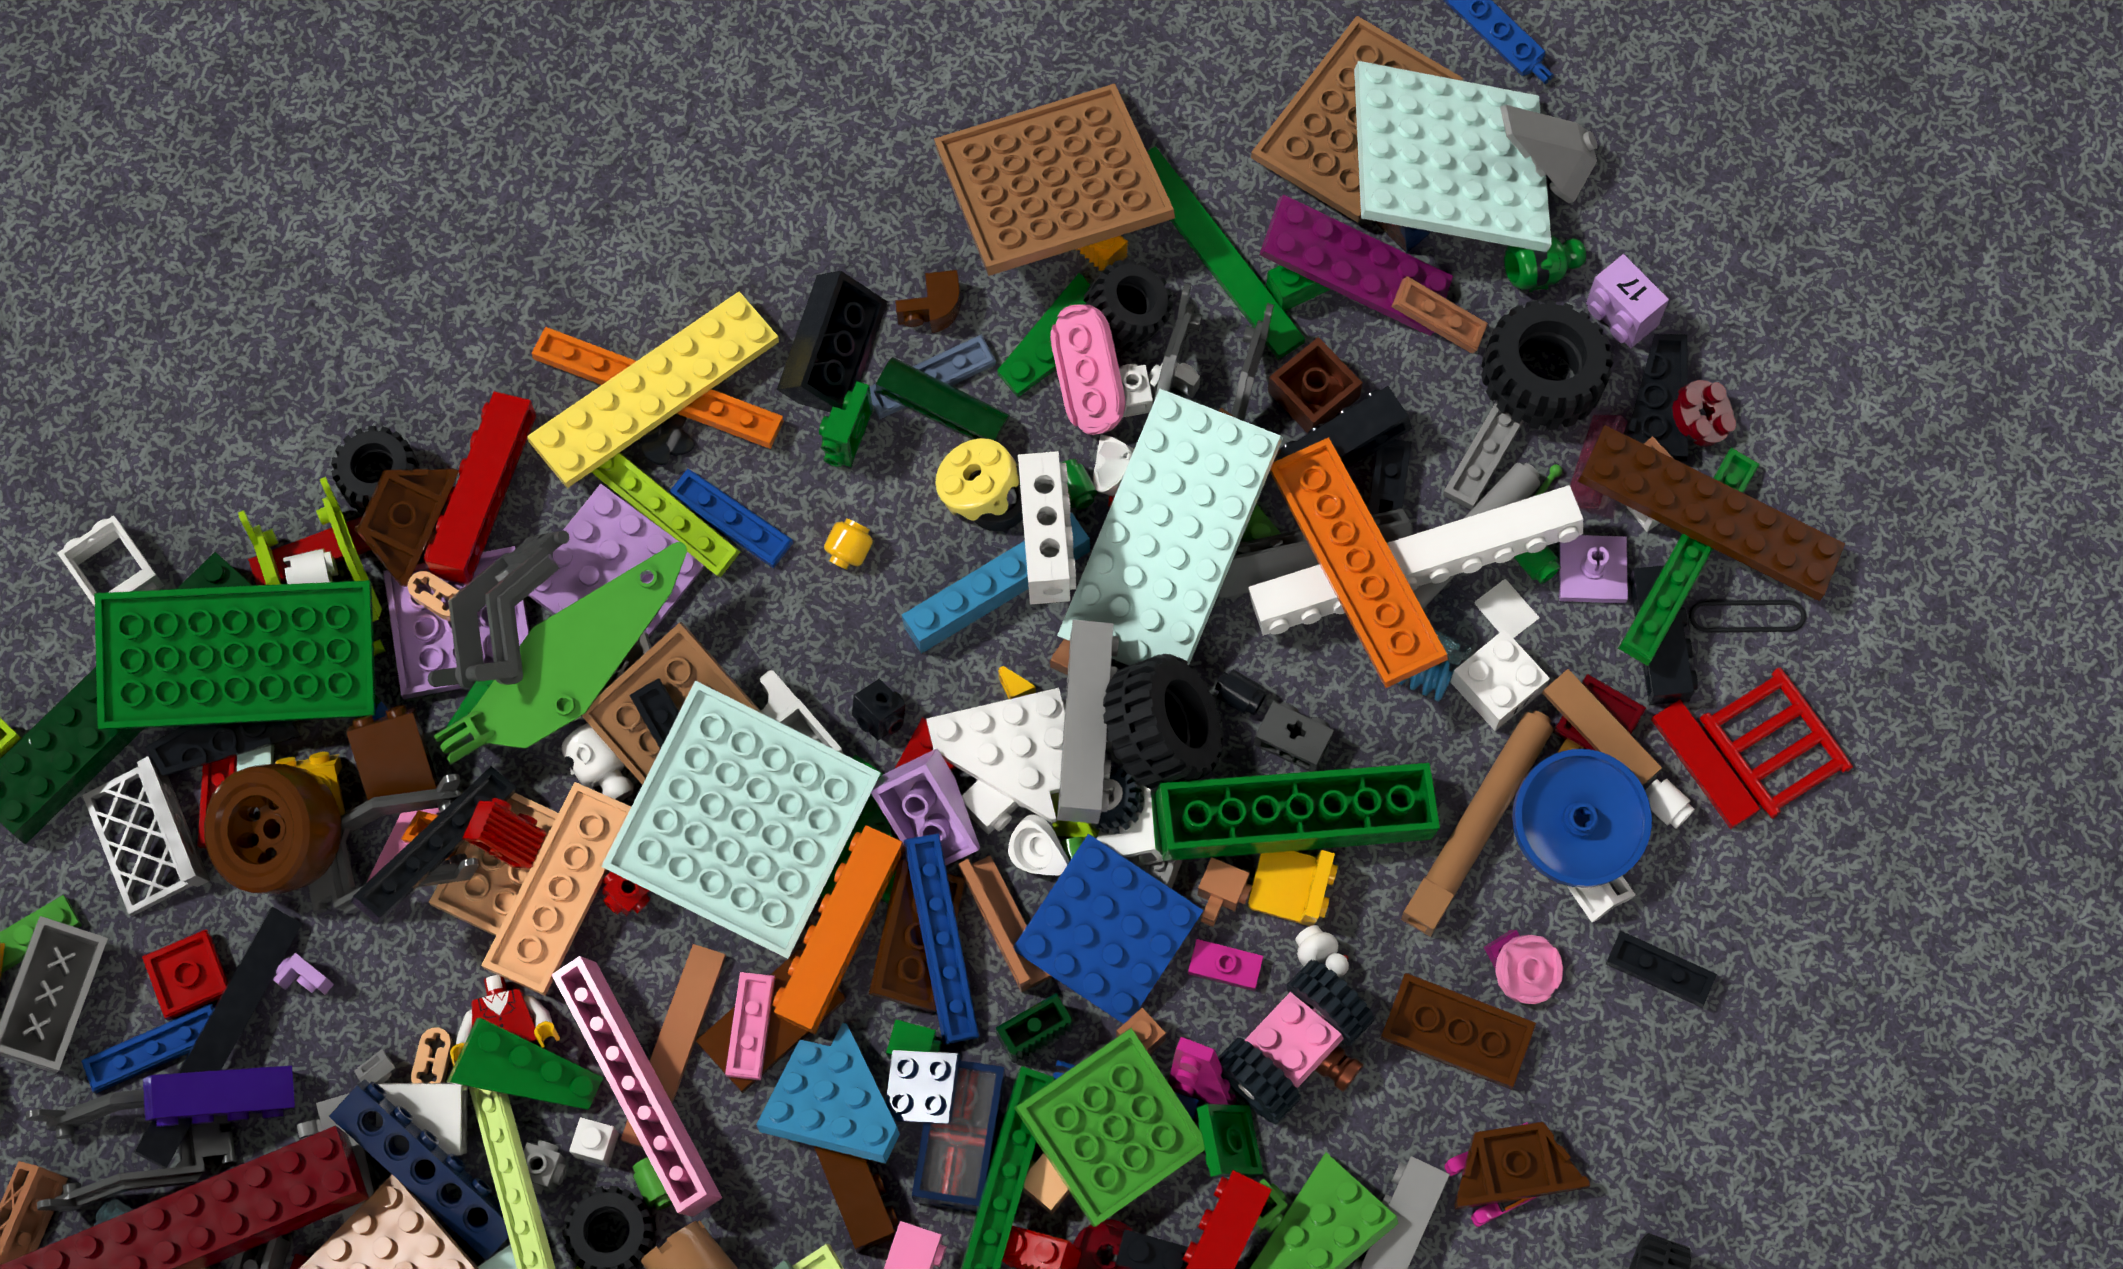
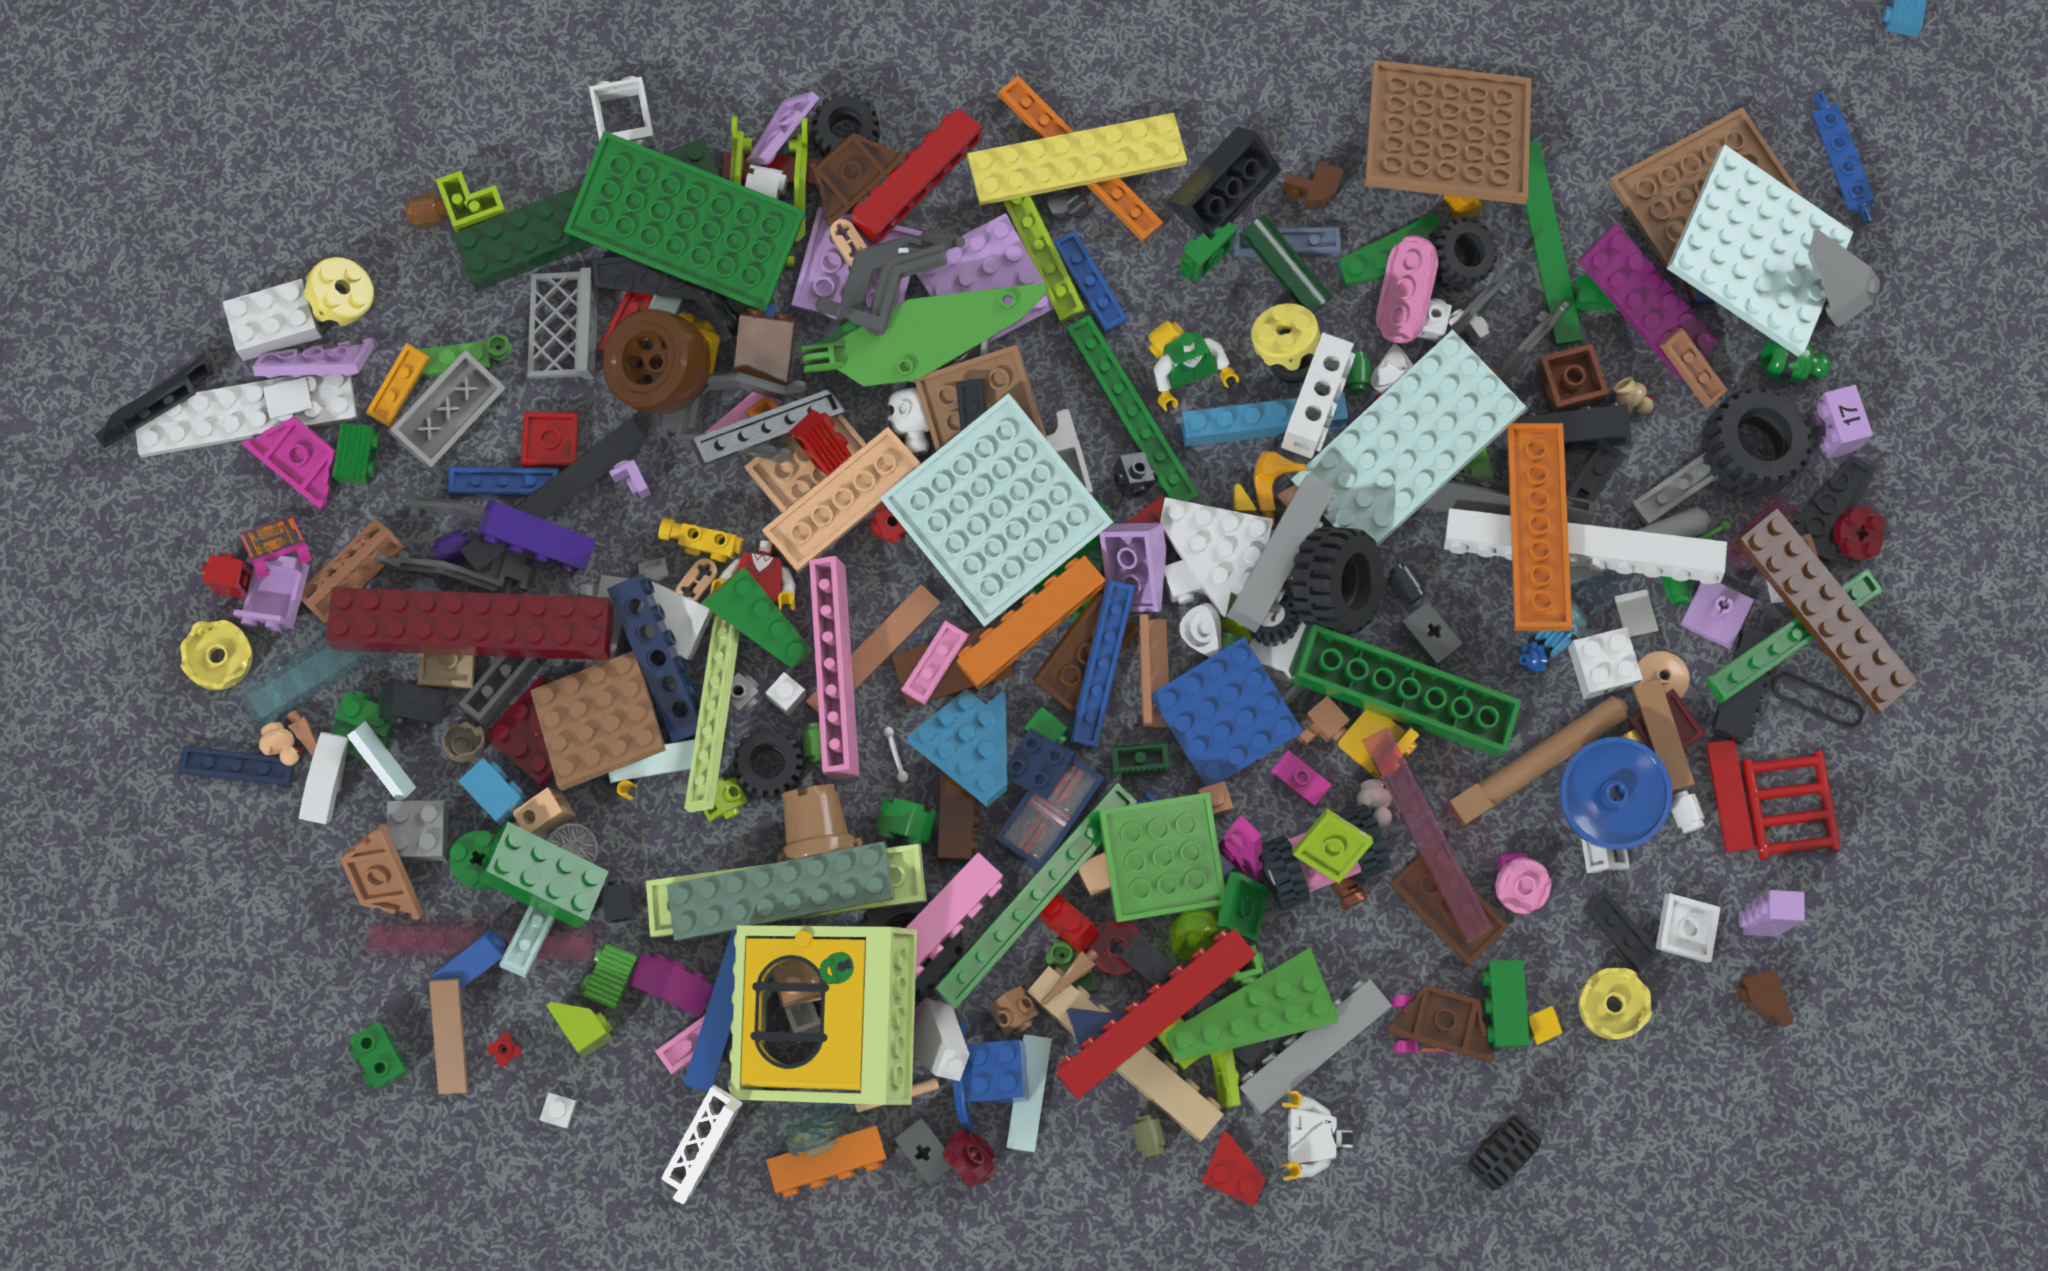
camera: 20 degrees right, 5 degrees up
(80, 887) = (498, 340): none -> bright green plate
(119, 1154) = (448, 547): none -> dark purple brick
(300, 501) = (781, 127): none -> lavender wing
(321, 741) = (719, 313): none -> black plate
(423, 1008) = (706, 542): none -> yellow brick
(772, 1173) = (902, 775): none -> white hinge
(797, 1224) = (905, 820): none -> green brick
(842, 639) = (1131, 410): none -> green plate
(882, 556) = (1188, 361): none -> torso
(1026, 635) = (1267, 469): none -> light orange animal
(1186, 1197) = (1192, 932): none -> clear neon green cylinder
(1299, 1023) = (1332, 845): none -> lime tile
(1389, 373) = (1633, 395): none -> tan animal
(1396, 961) = (1427, 834): none -> clear pink tile
(1419, 710) = (1533, 658): none -> blue plant
(1558, 650) = (1664, 661): none -> light nougat dish
(1574, 1112) = (1506, 1004): none -> green brick
(1627, 1116) = (1544, 1025): none -> yellow slope
(1710, 1037) = (1634, 1000): none -> light yellow plate
(1732, 931) = (1688, 928): none -> white plate
(1818, 870) = (1773, 913): none -> lavender brick
(1854, 969) = (1765, 997): none -> reddish brown slope

